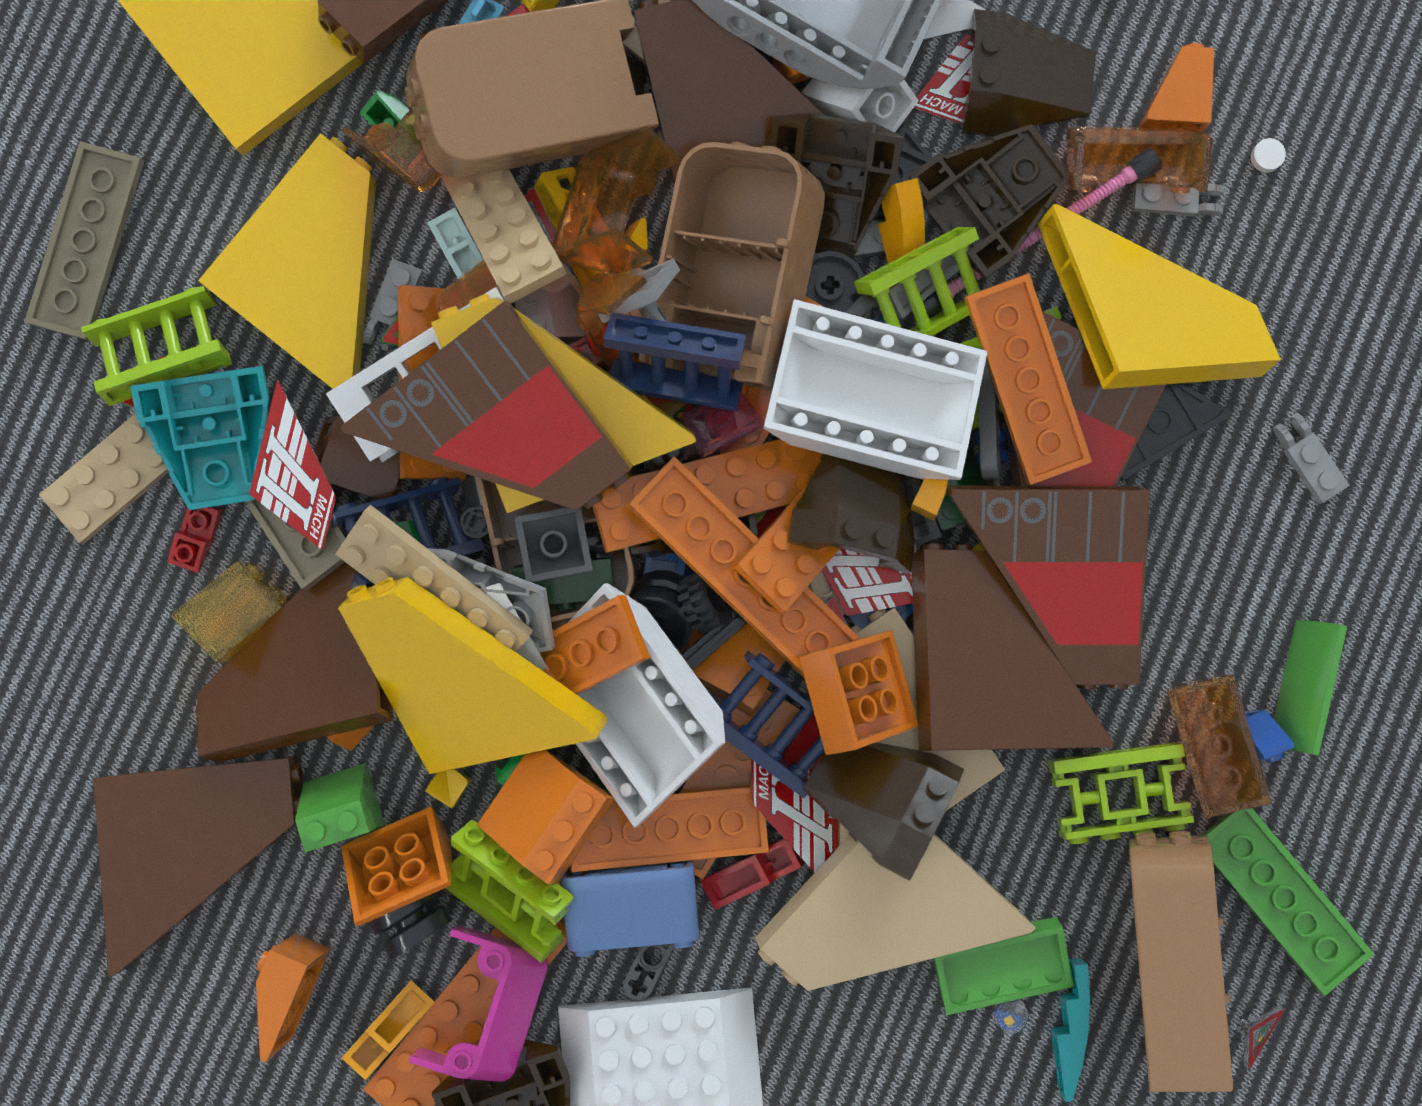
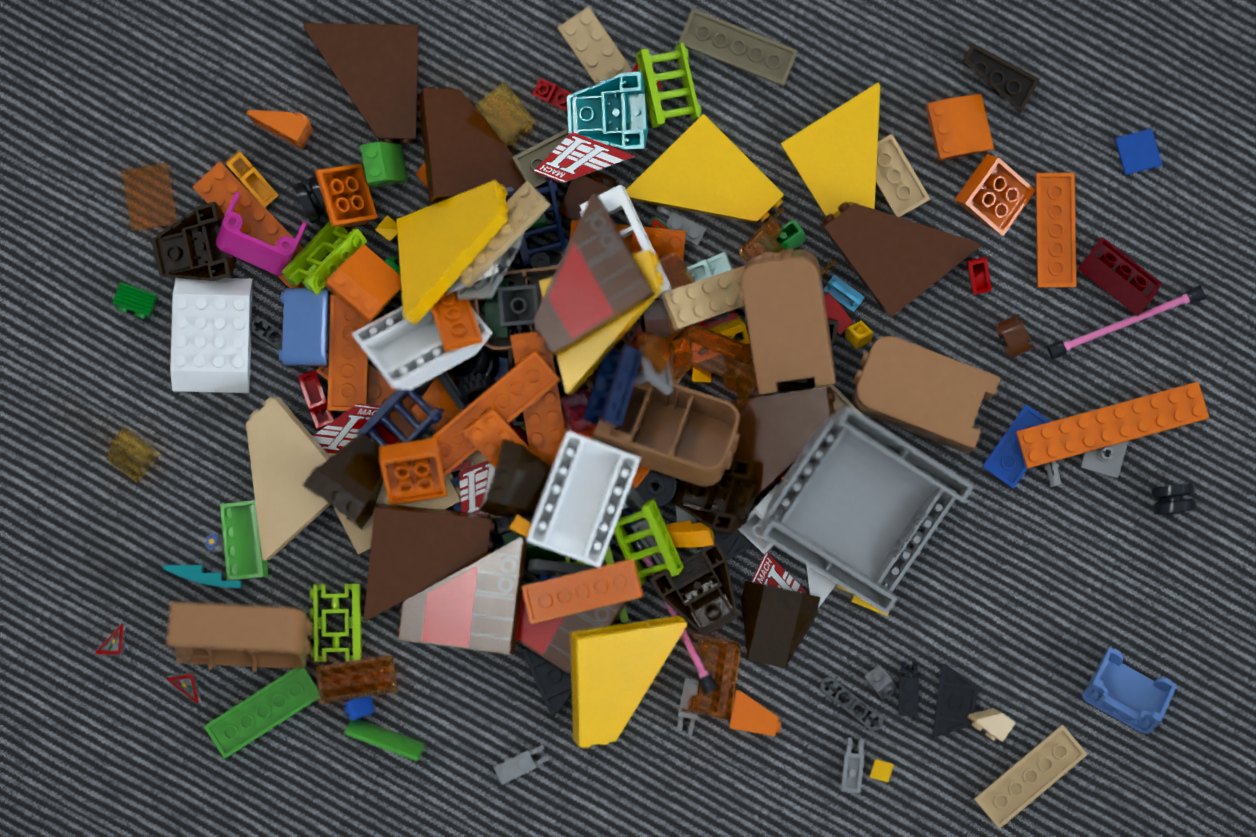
camera: 90 degrees right, 0 degrees up
(1268, 155) = (709, 764): white tile -> none

